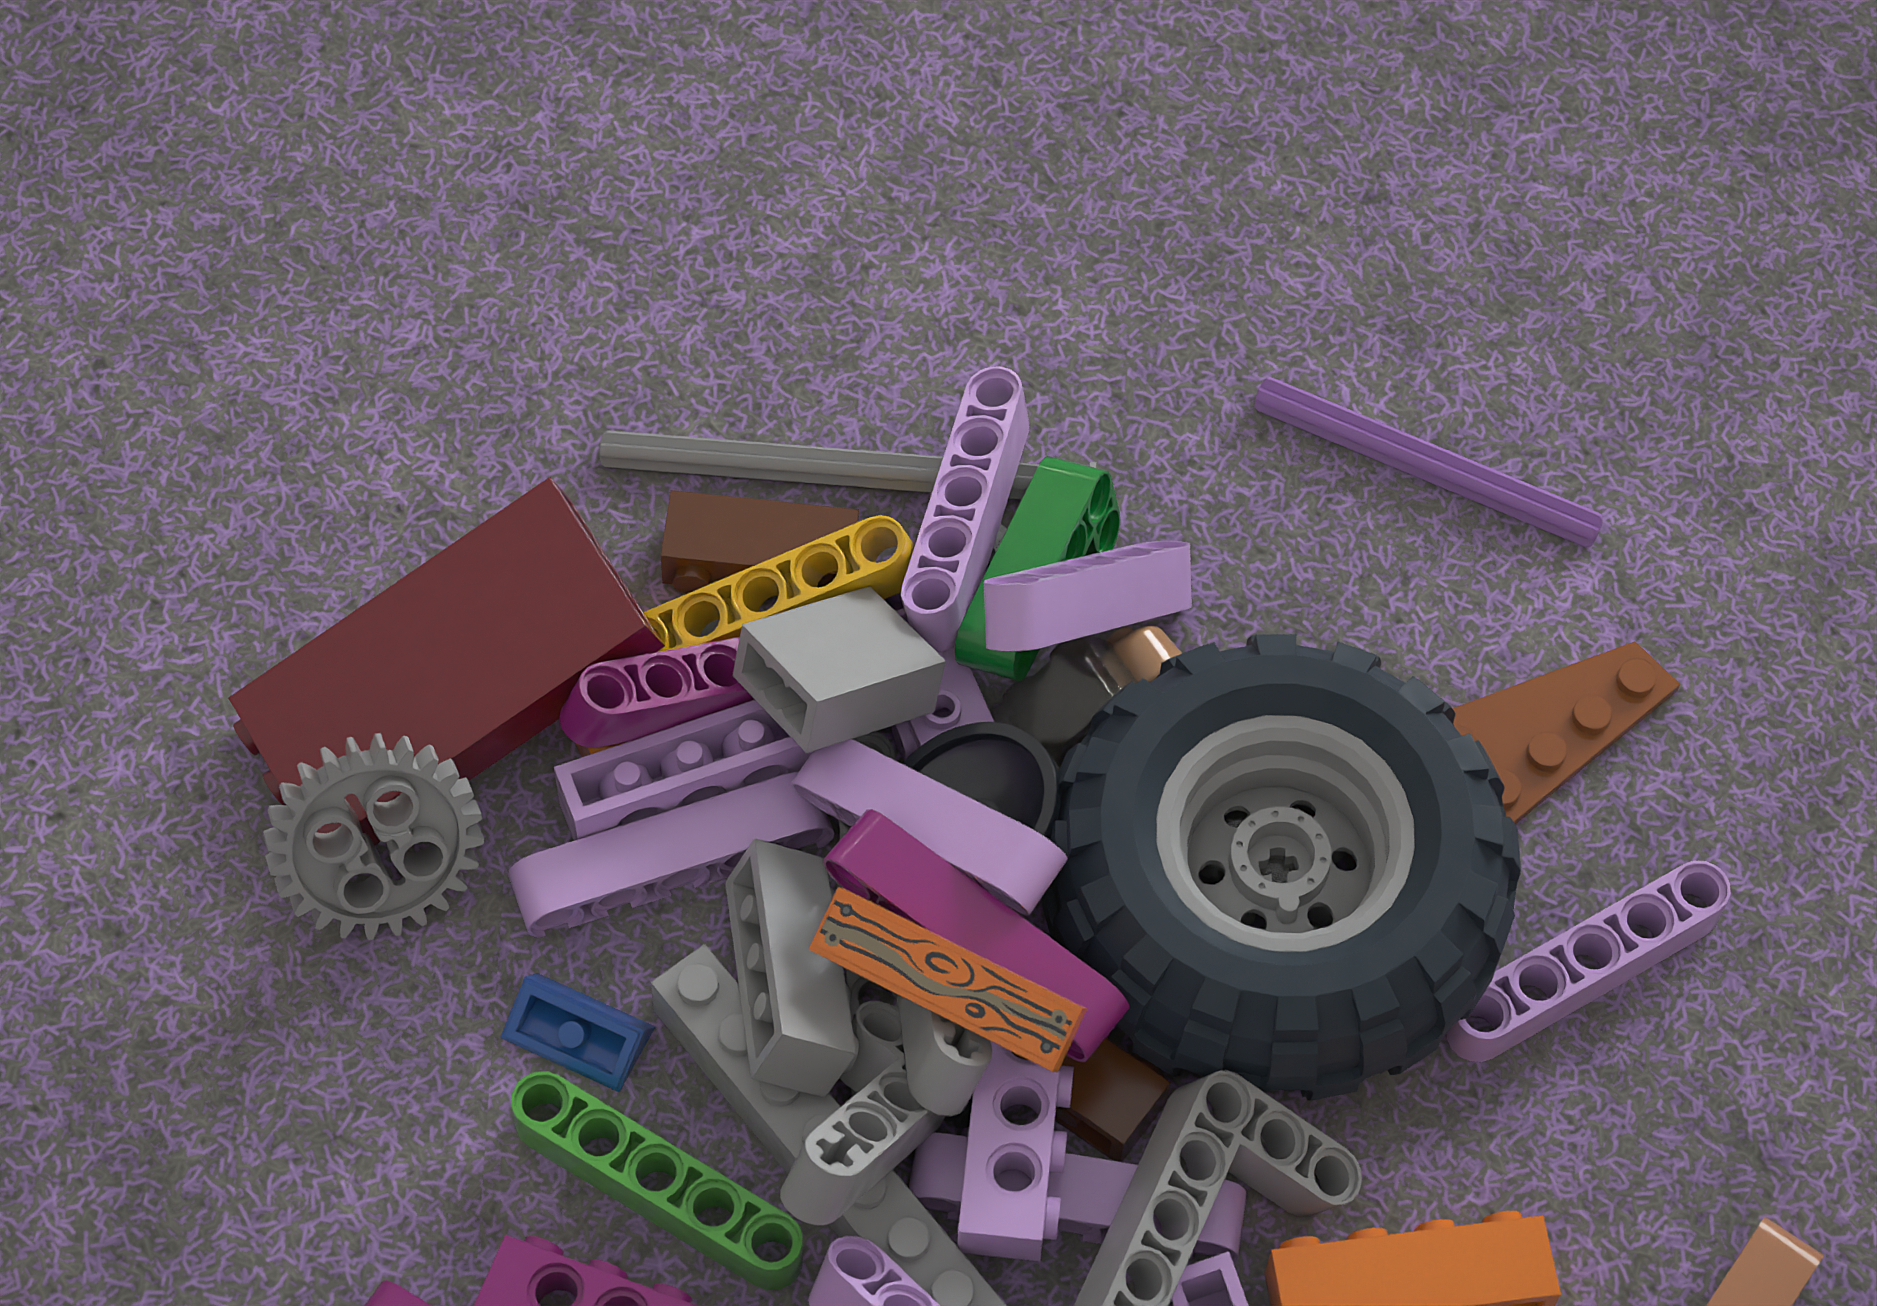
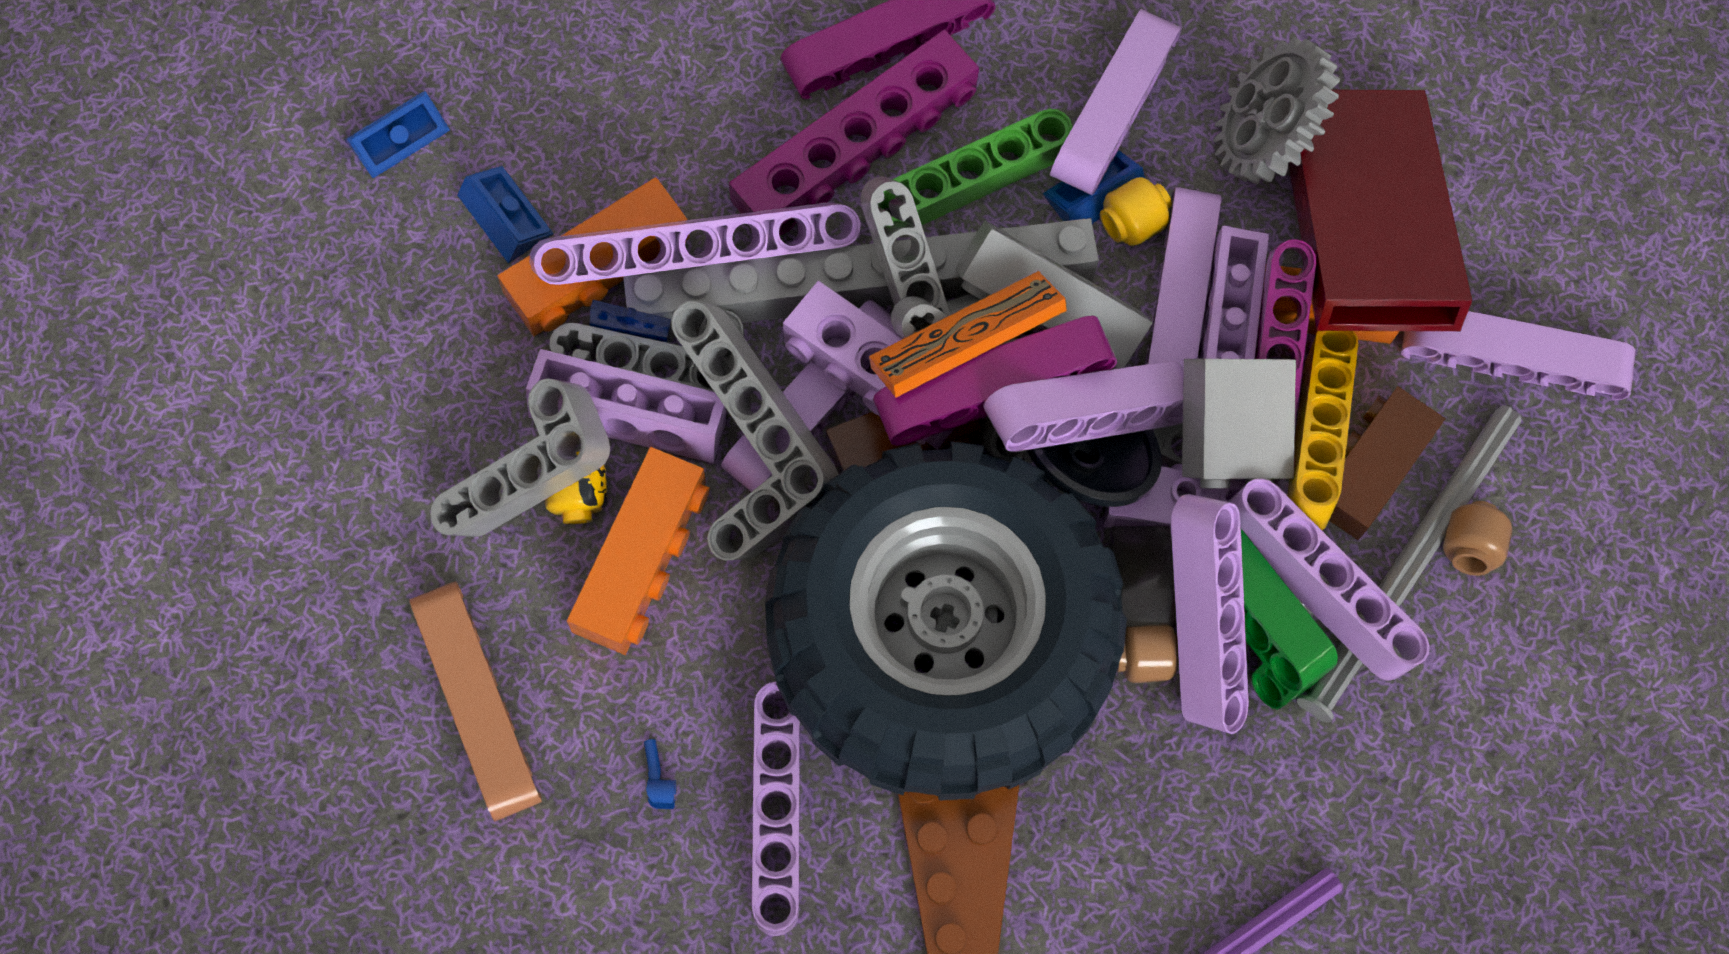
camera: 120 degrees right, 10 degrees up
(448, 1049) = (1115, 102): none -> lavender beam
(506, 416) = (1531, 352): none -> lavender beam
(592, 954) = (1136, 211): none -> yellow head
(787, 409) = (1477, 538): none -> medium nougat head
(1655, 1099) = (659, 791): none -> blue hand

